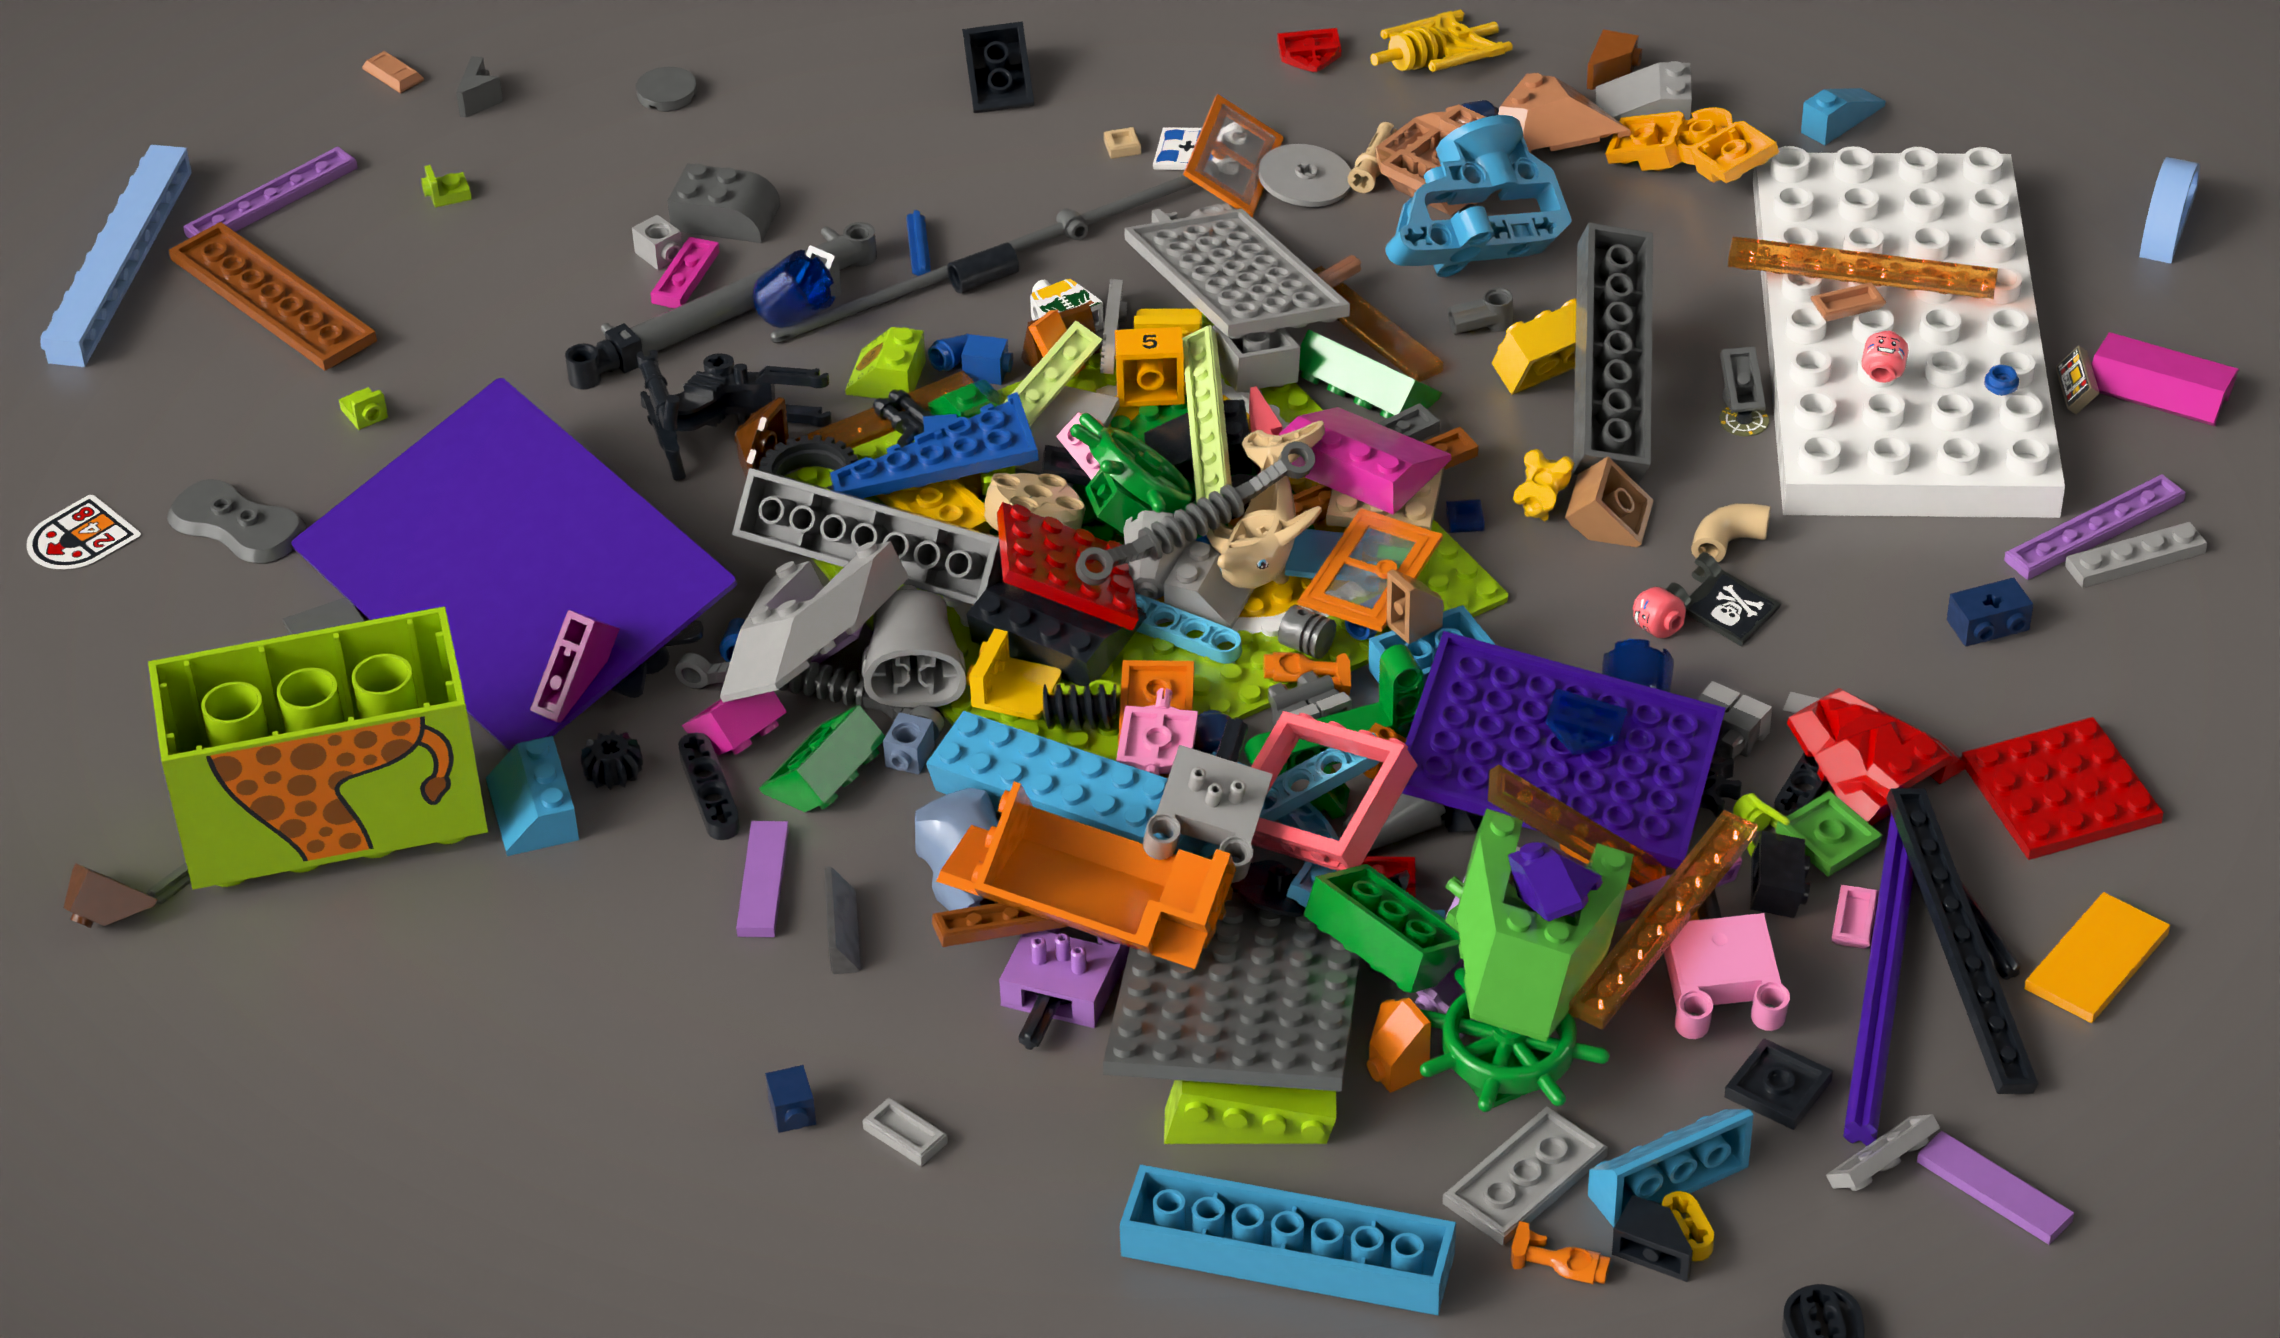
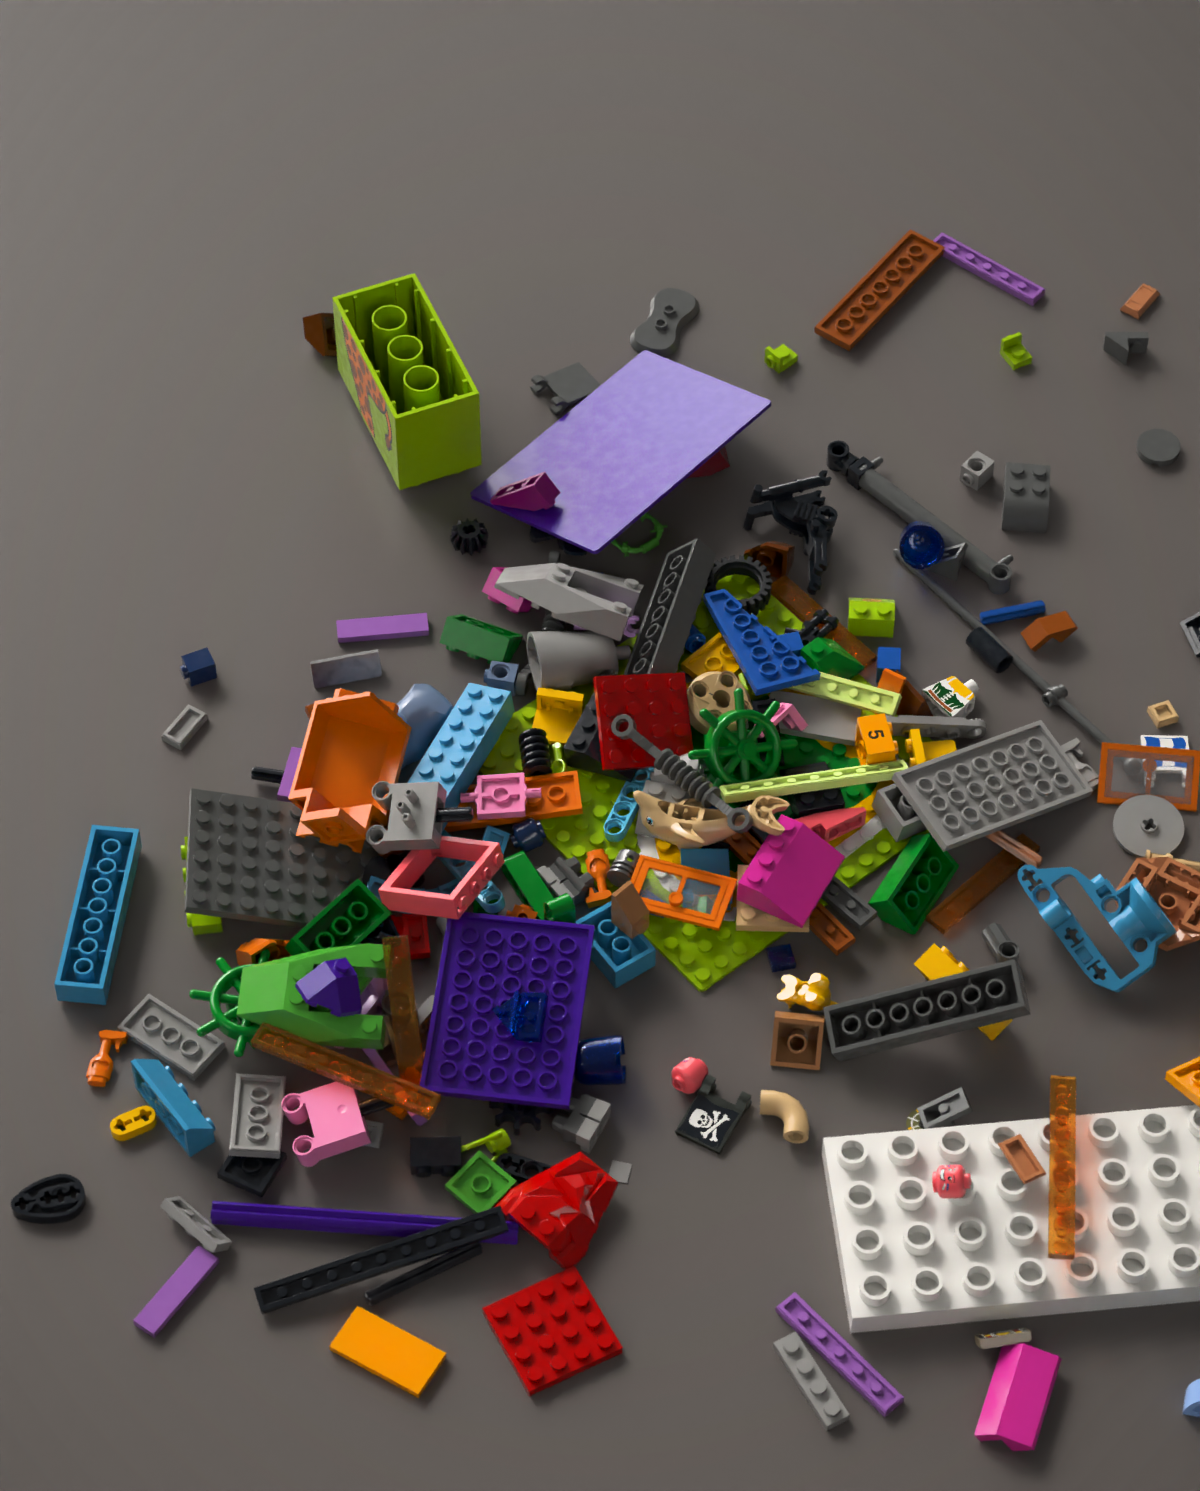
camera: 80 degrees right, 10 degrees up
(79, 535) = (641, 255): sticker -> none
(116, 256) = (904, 207): light blue brick -> none
(532, 798) = (434, 509): dark azure slope -> none
(685, 272) = (949, 491): dark pink plate -> none
(706, 786) = (456, 586): black beam -> none
(947, 352) = (894, 640): blue cone -> none
(964, 213) = (1043, 629): none -> dark orange slope
(1652, 1239) = (117, 1098): black slope -> none
(1693, 1067) = (257, 1116): none -> light grey tile
(1855, 916) = (410, 1204): bright pink tile -> none
(1989, 611) = (722, 1280): dark blue brick -> none
(2001, 380) = (947, 1257): blue plate -> none

